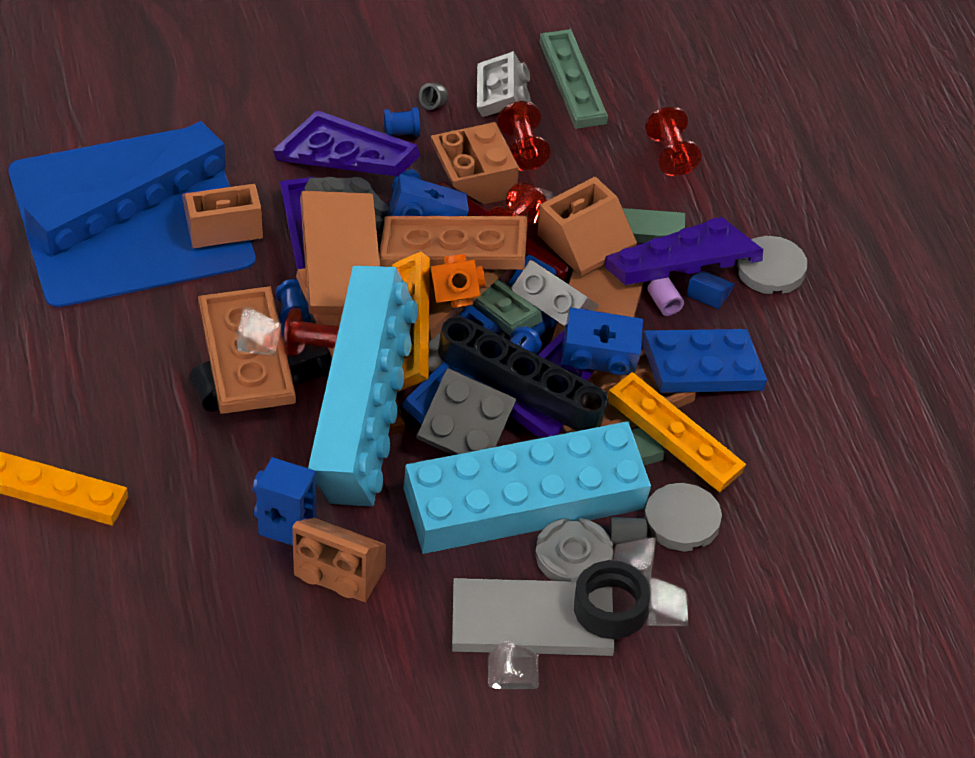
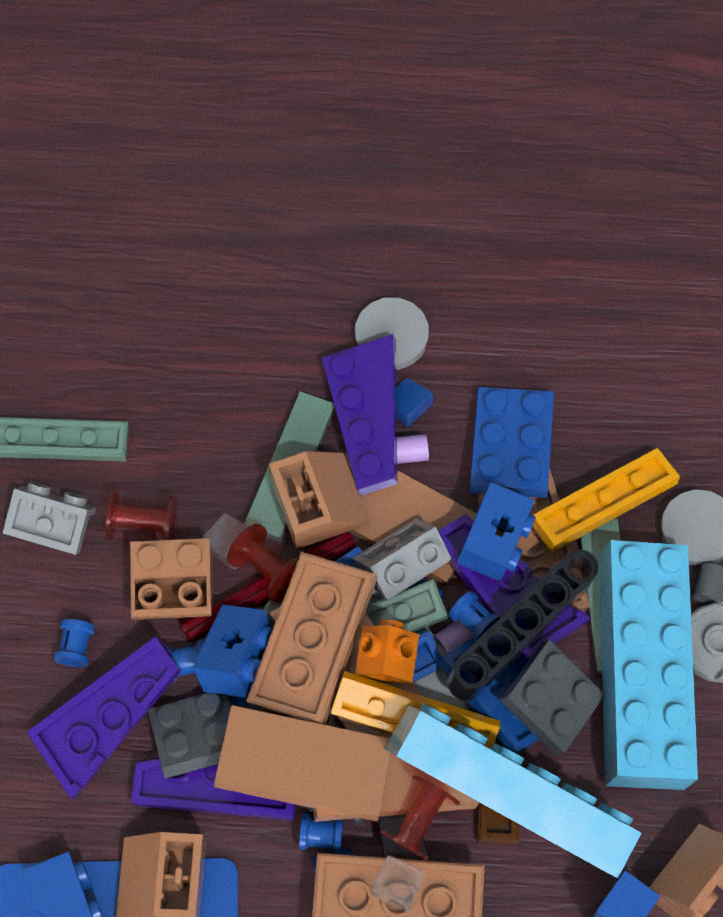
camera: 70 degrees left, 20 degrees up
(431, 93) = (44, 602): dark grey hinge -> none
(679, 155) = (197, 368): clear red piece -> none

